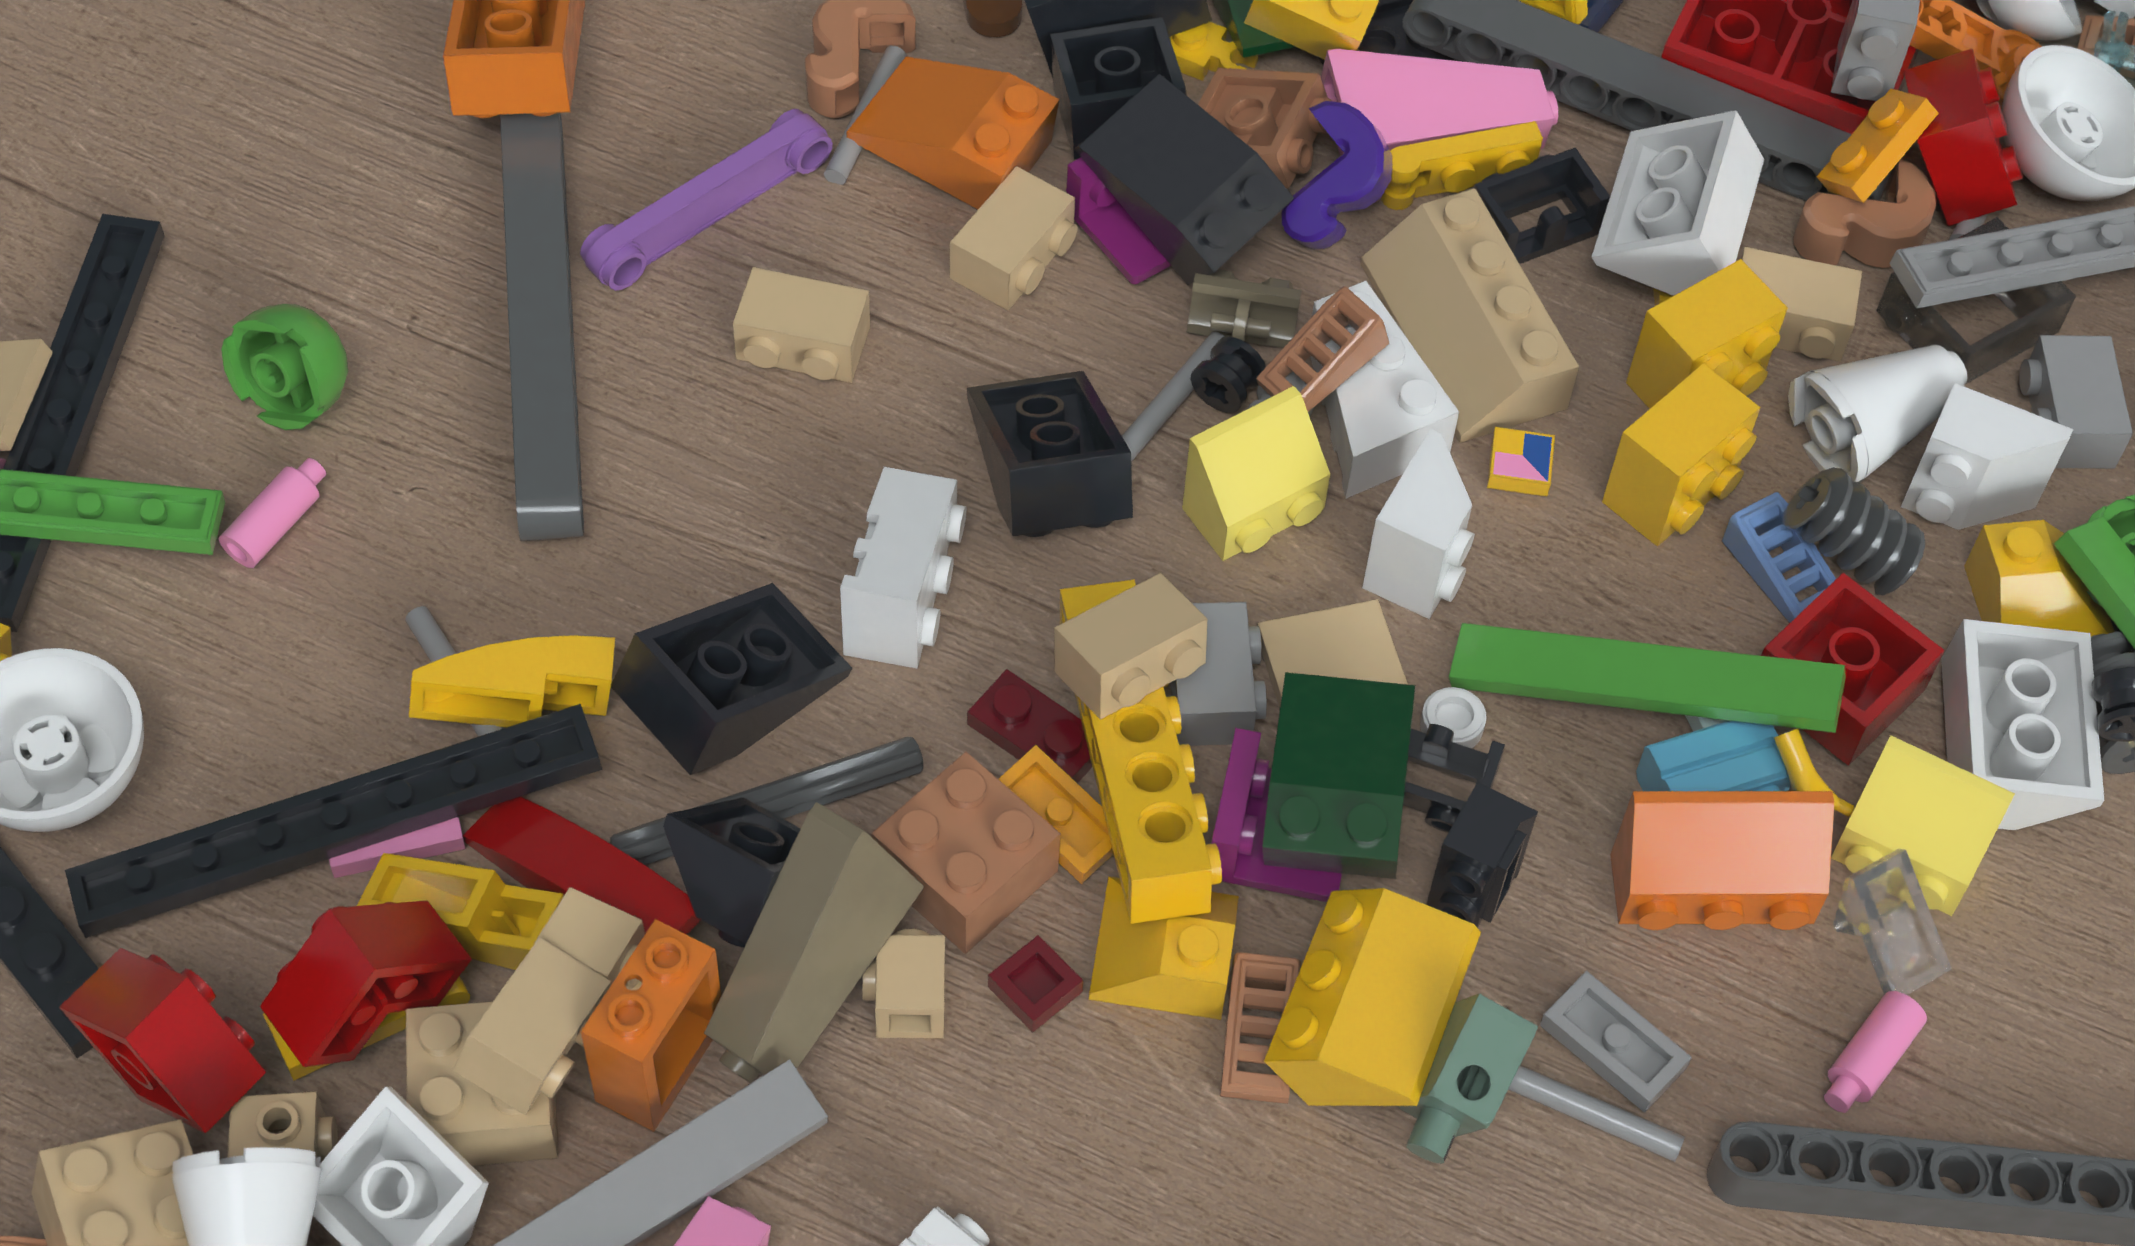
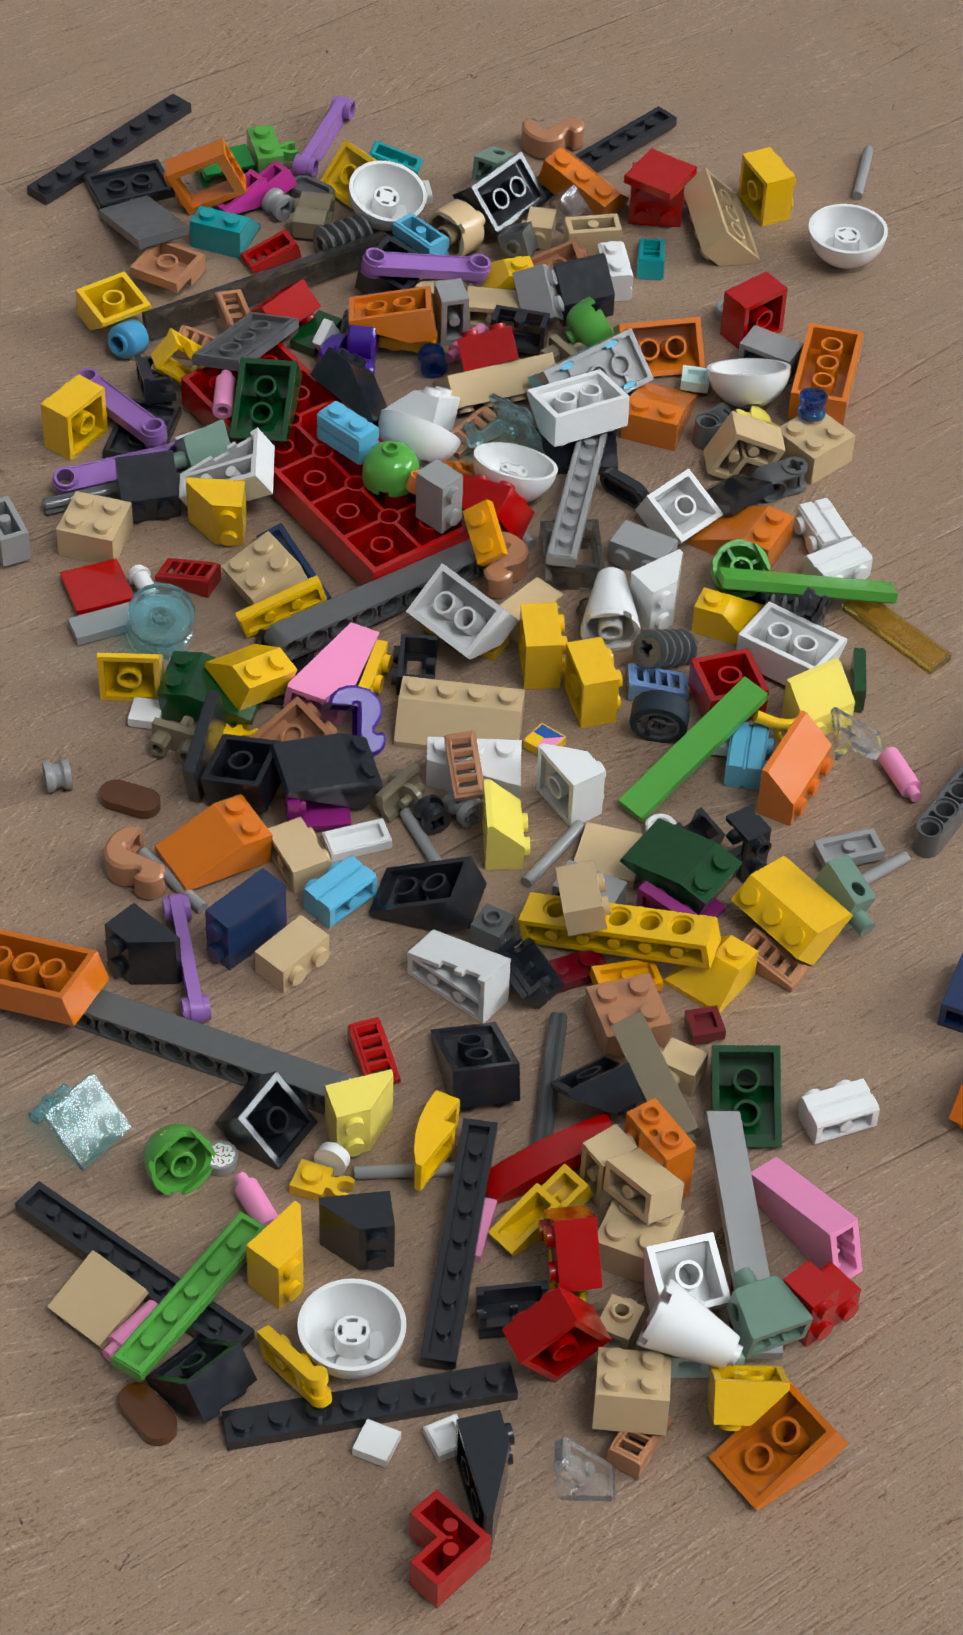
camera: 60 degrees left, 10 degrees down
(153, 582) = (277, 1258): none -> yellow slope
(228, 956) = (500, 1303): none -> black hinge
(263, 669) = (359, 1229): none -> black slope
(300, 220) = (82, 1119): none -> clear light blue plate
(345, 428) = (225, 1158): none -> tile
(367, 576) = (318, 1181): none -> yellow plate
(415, 568) = (333, 1156): none -> white tile
(439, 448) = (266, 1120): none -> black slope
(500, 553) = (359, 1110): none -> light yellow slope
(666, 116) = (142, 949): none -> black slope
(692, 496) = (367, 1034): none -> red slope
(810, 222) = (245, 919): none -> dark blue brick
(909, 1119) = (749, 1082): none -> dark green slope
(969, 658) = (531, 971): none -> black hinge
(974, 326) = (339, 891): none -> medium azure brick
(1023, 570) = (492, 928): none -> dark grey brick
(1114, 305) = (357, 839): none -> white tile
(1277, 585) = (553, 854): none -> light grey bar
(1686, 591) = (659, 716): none -> black wheel
(2048, 874) = (858, 678): none -> dark green tile

